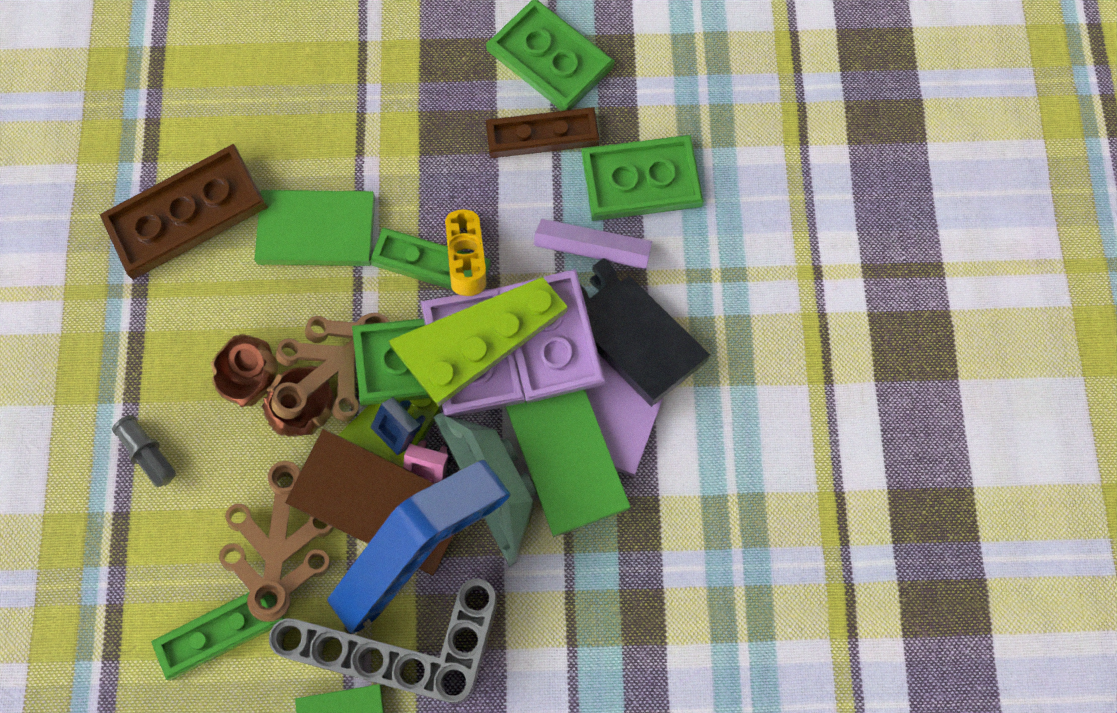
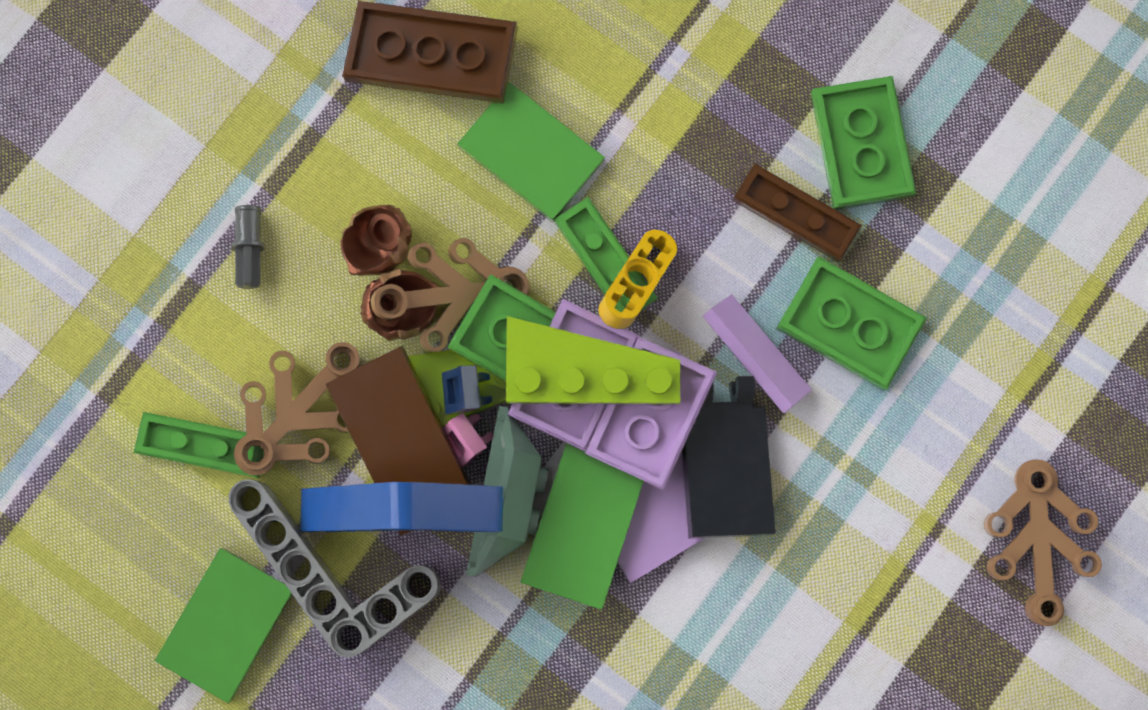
camera: 40 degrees right, 10 degrees up
(891, 219) = (1041, 535): none -> medium nougat plant

